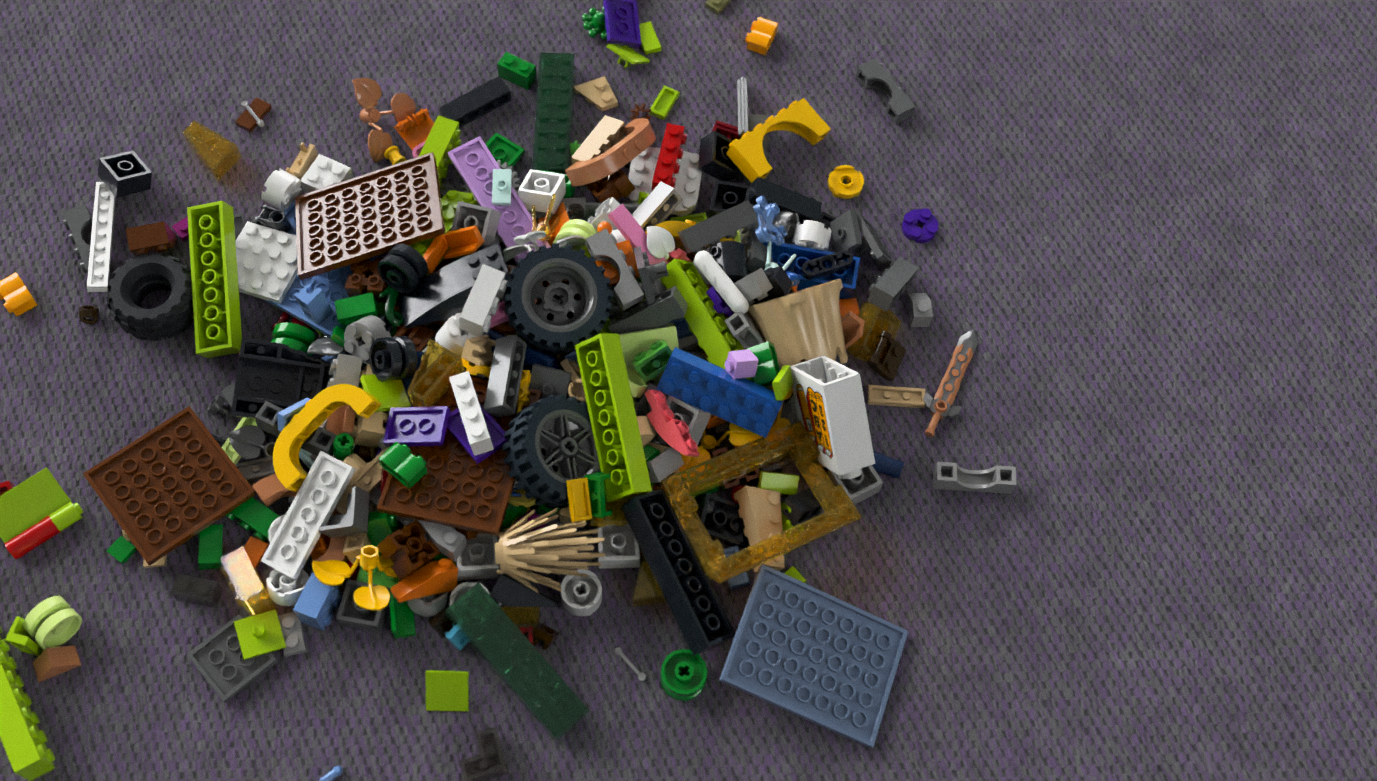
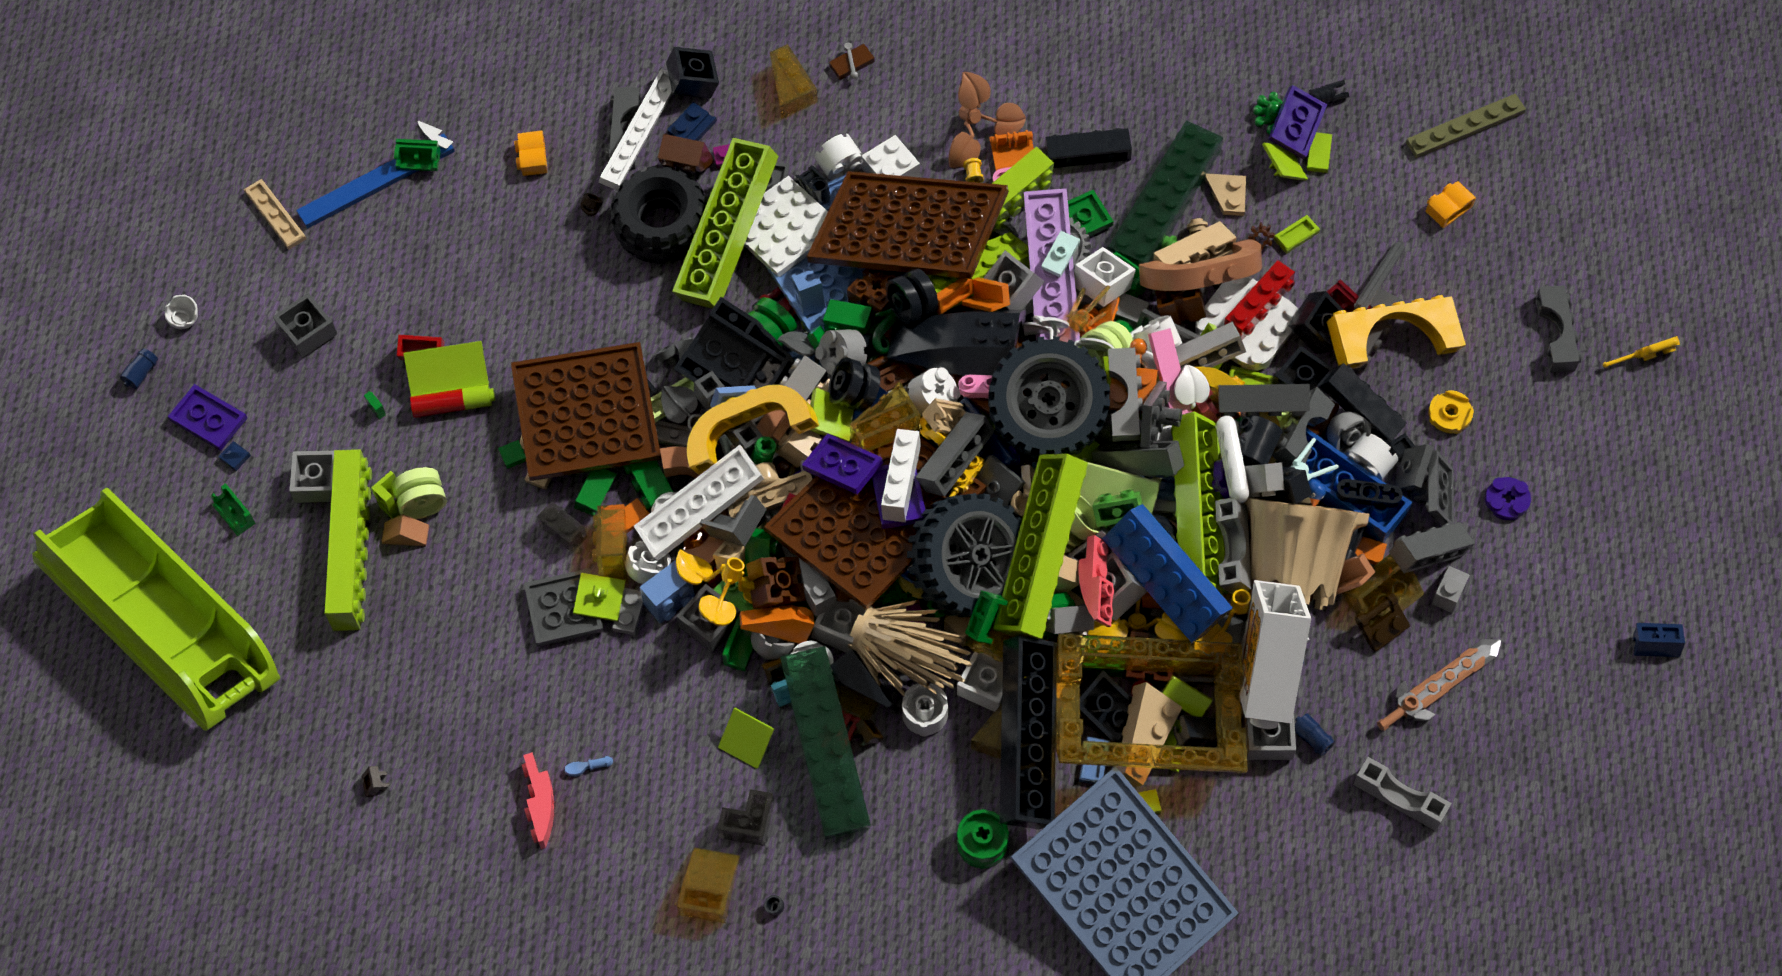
camera: 35 degrees right, 0 degrees up
(145, 212) = (692, 123): none -> dark blue plate
(303, 161) = (876, 135): tan hinge -> none
(403, 465) = (810, 496): green brick -> none
(483, 301) = (969, 366): white brick -> none
(517, 70) = (1152, 130): green brick -> none
(575, 211) = (1128, 313): clear smoke plate -> none
(579, 499) = (963, 612): yellow tile -> none
(588, 126) = (1196, 225): none -> tan plate
(641, 676) = (941, 820): light grey hinge -> none
(741, 364) = (1201, 553): lavender brick -> none
(765, 215) = (1310, 425): medium blue plant -> none
(767, 365) = (1229, 565): green brick -> none
(782, 382) = (1236, 593): lime tile -> none
(896, 396) = (1370, 669): tan tile -> none
(955, 80) = (1649, 351): none -> yellow piece
(1080, 278) = (1658, 639): none -> dark blue hinge

